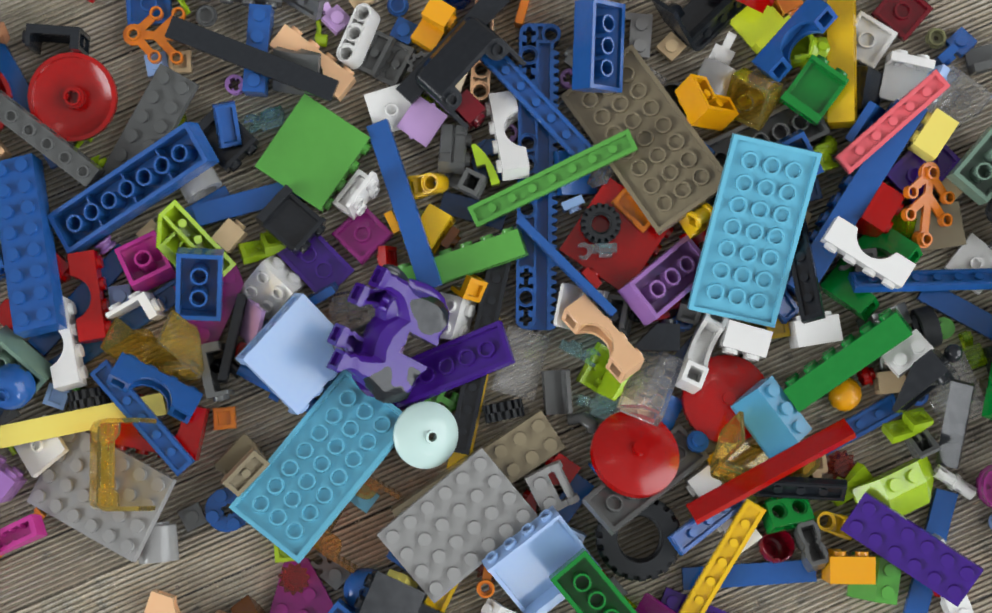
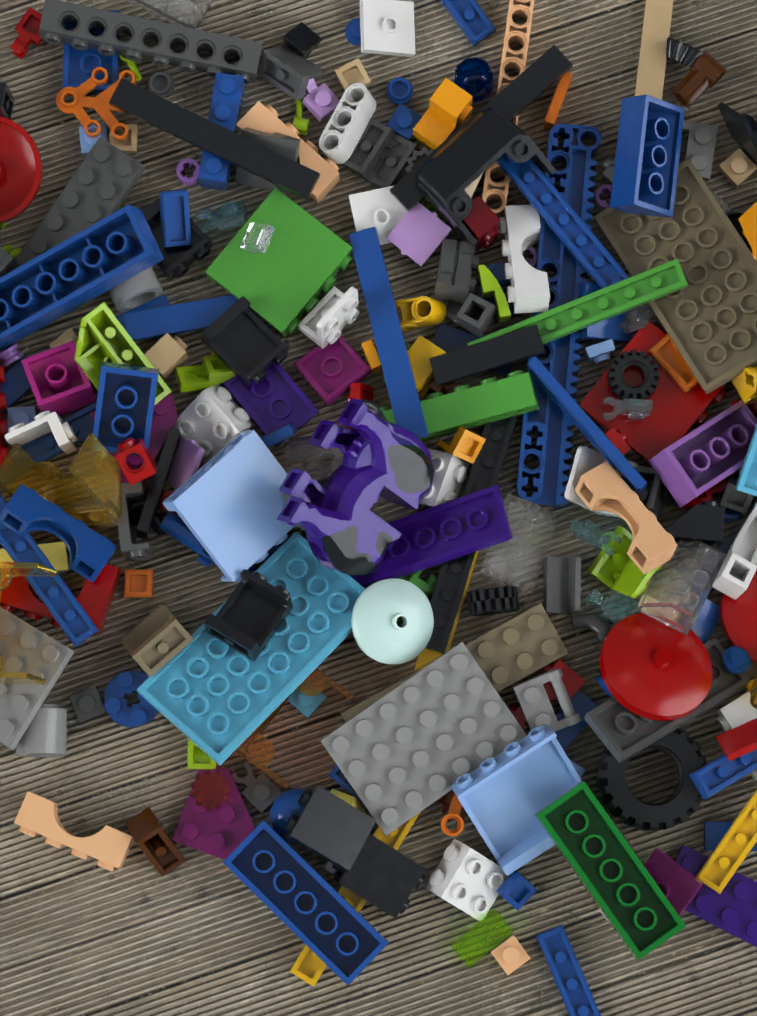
camera: 15 degrees right, 5 degrees down
(211, 335) = (138, 472): none -> red brick
(293, 136) = (257, 238): none -> clear plate
(313, 440) = (250, 615): none -> black panel
(483, 217) = (487, 355): none -> black tile

